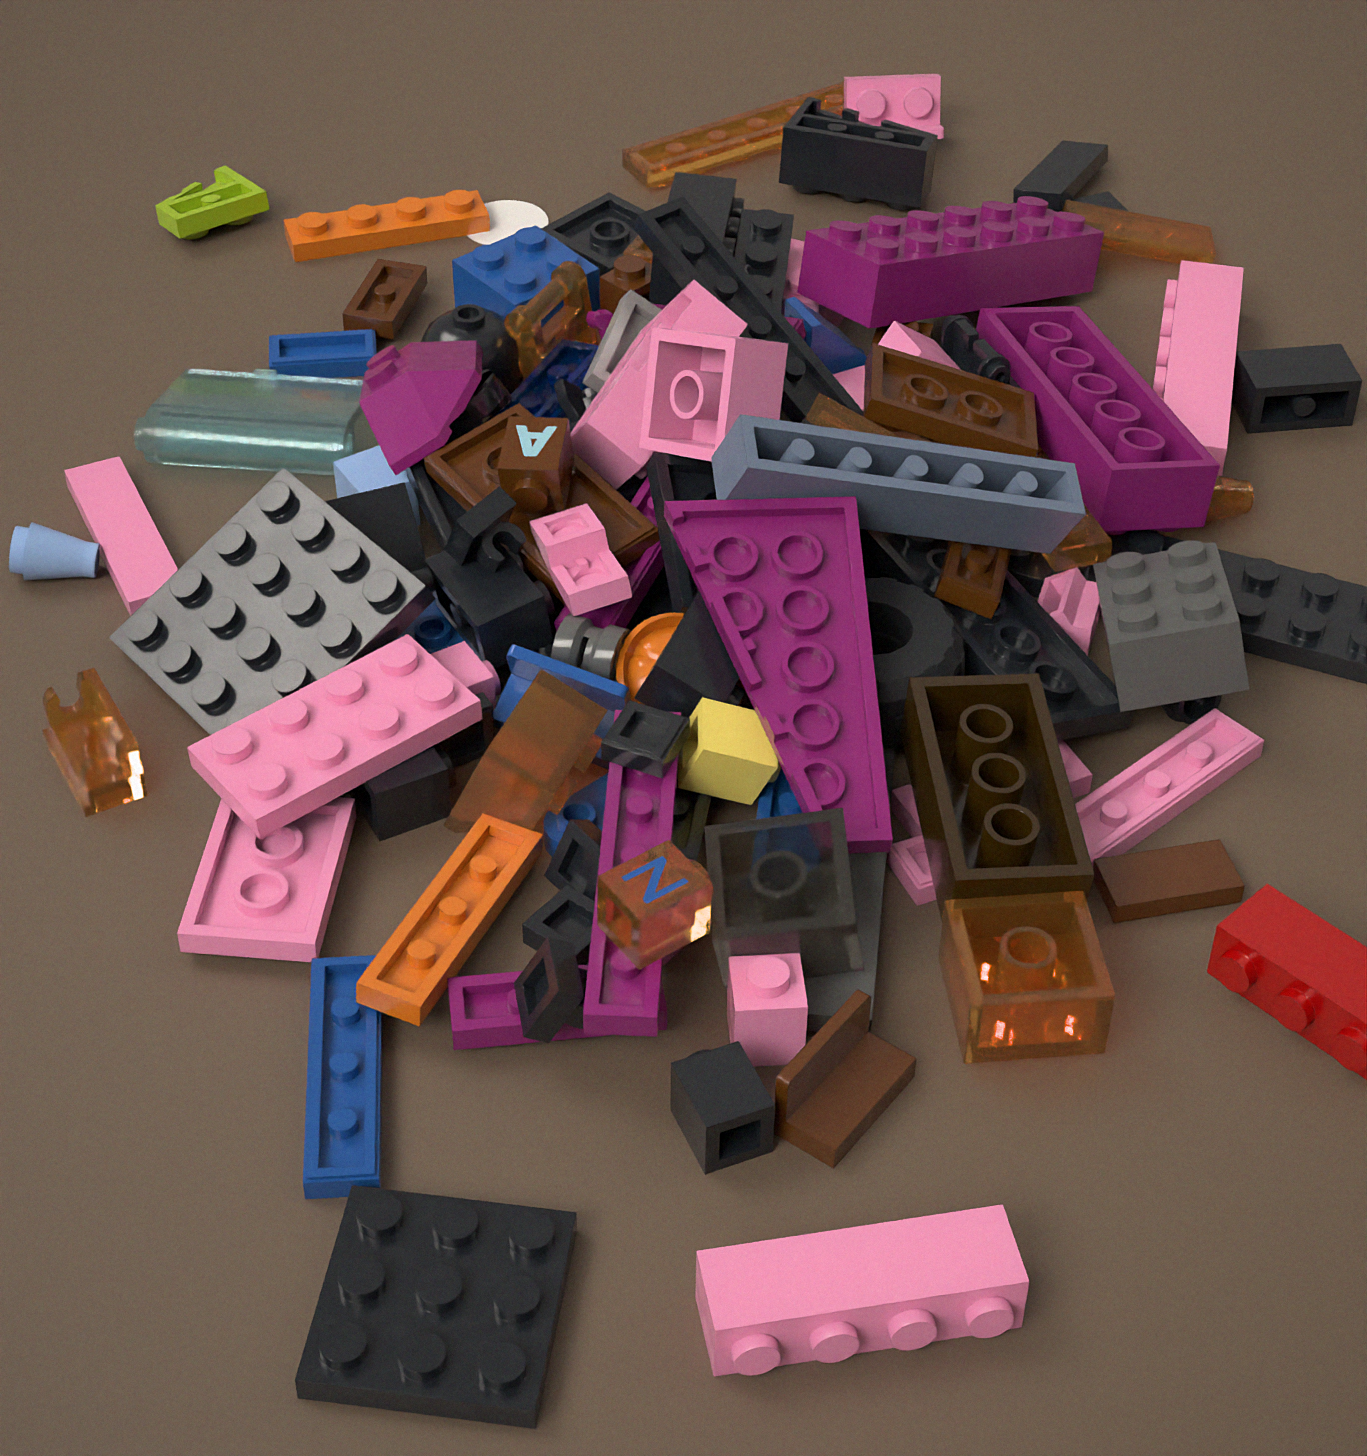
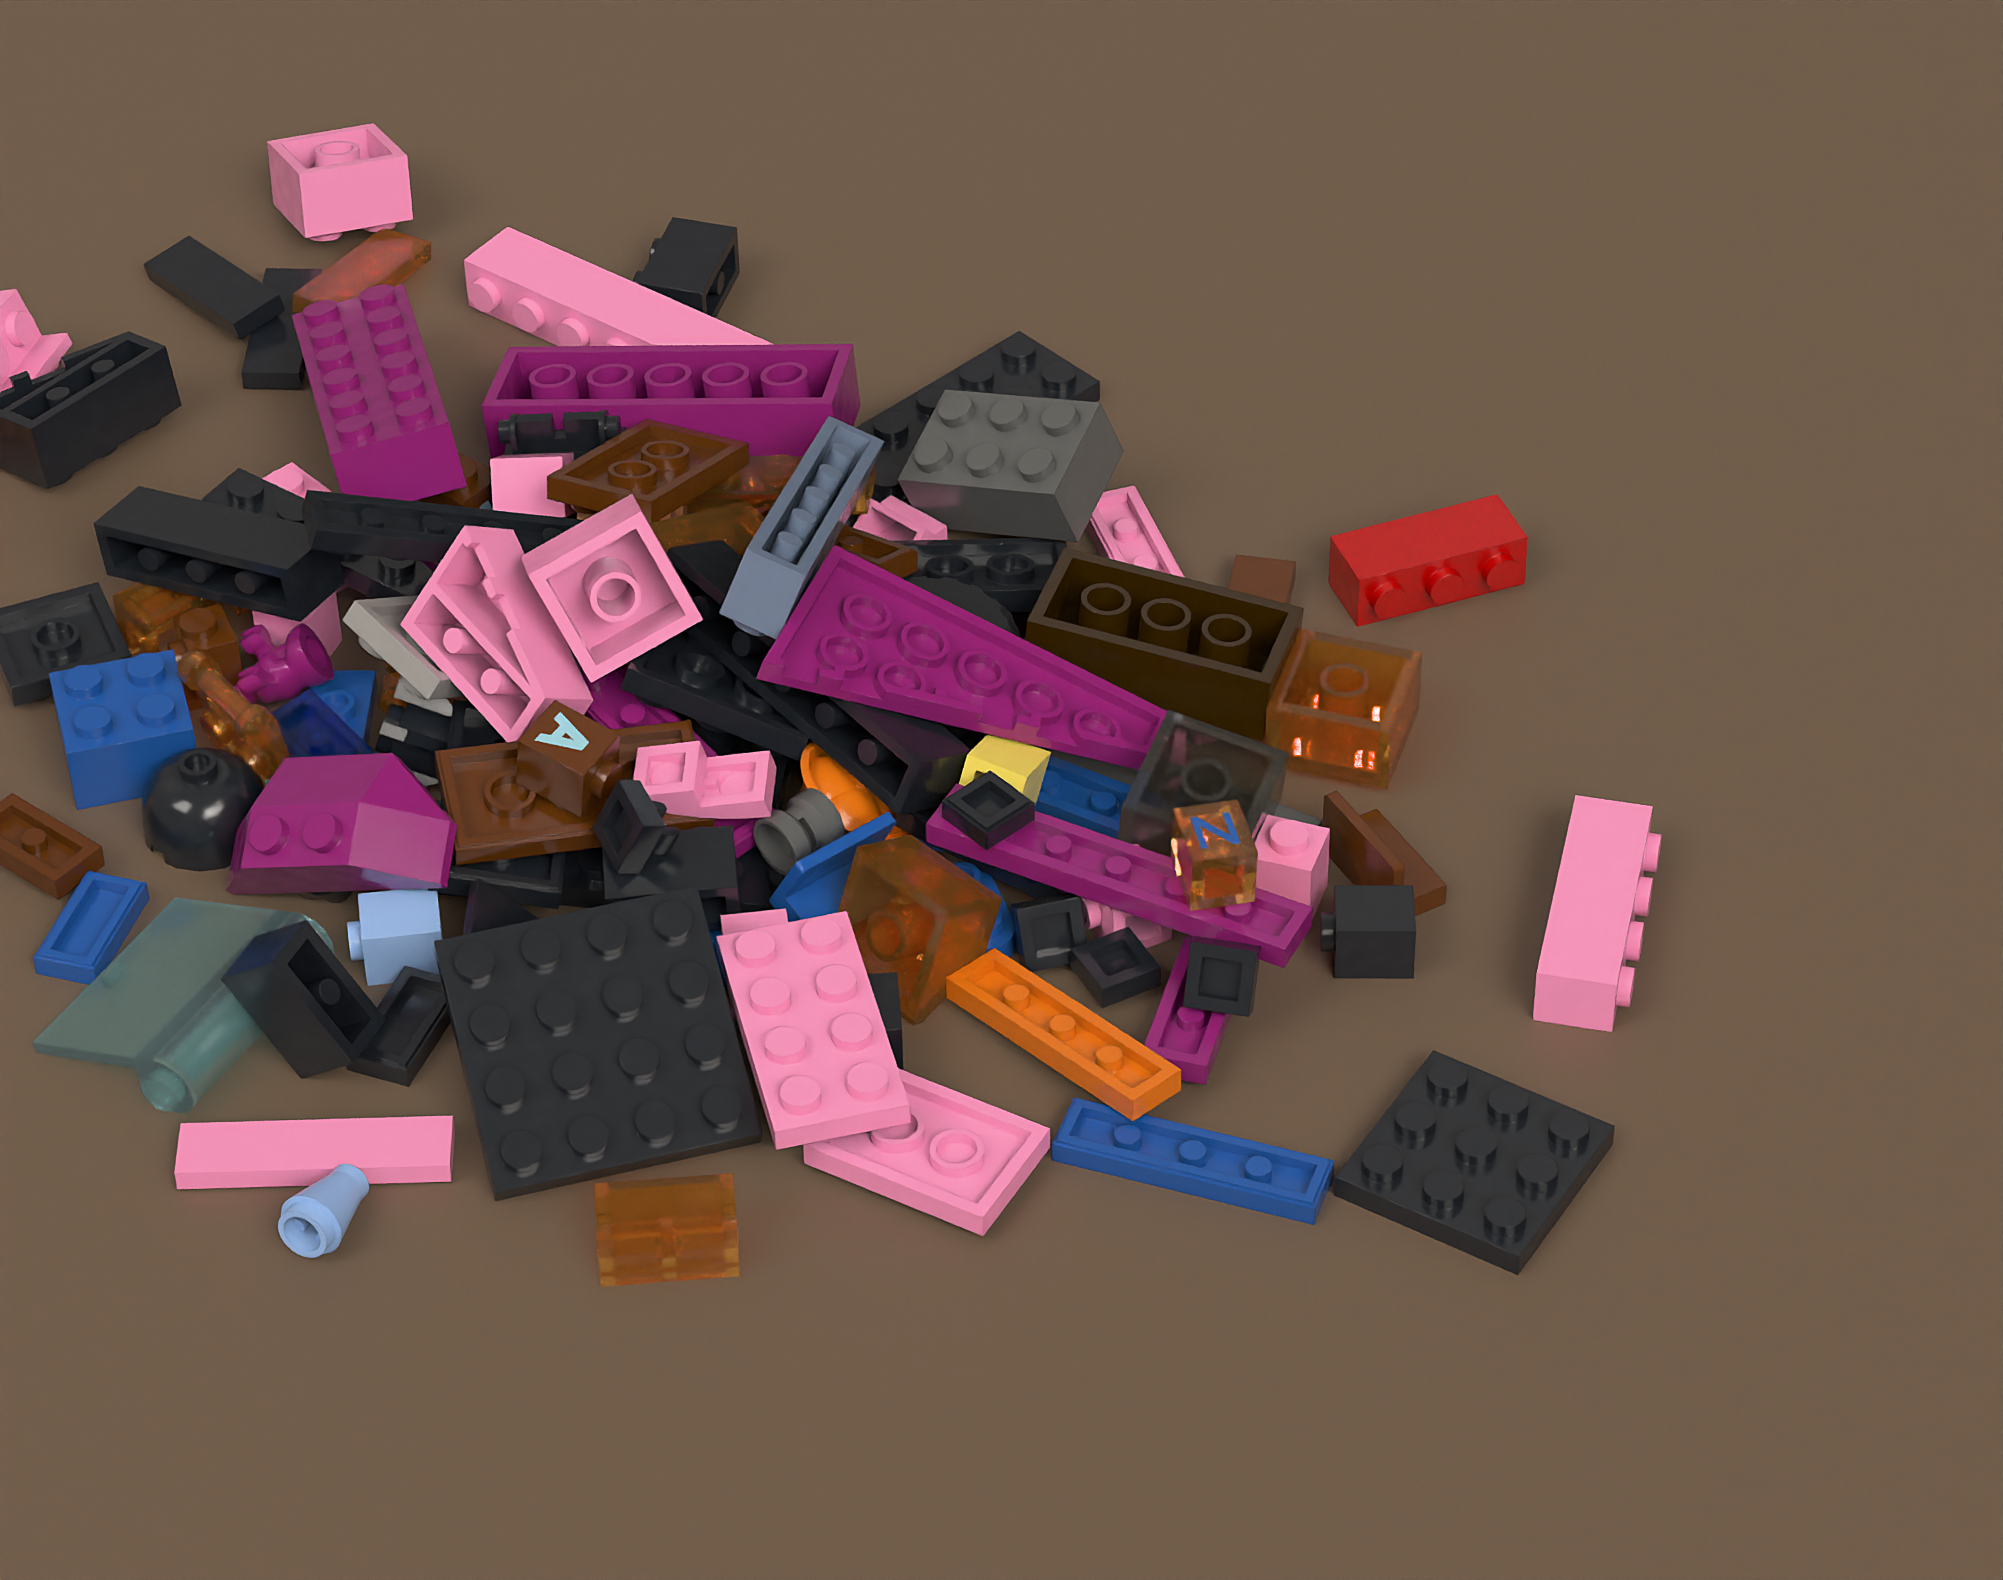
camera: 65 degrees left, 0 degrees up
(237, 447) = (303, 999): none -> black brick
(1221, 178) = (340, 181): none -> bright pink brick

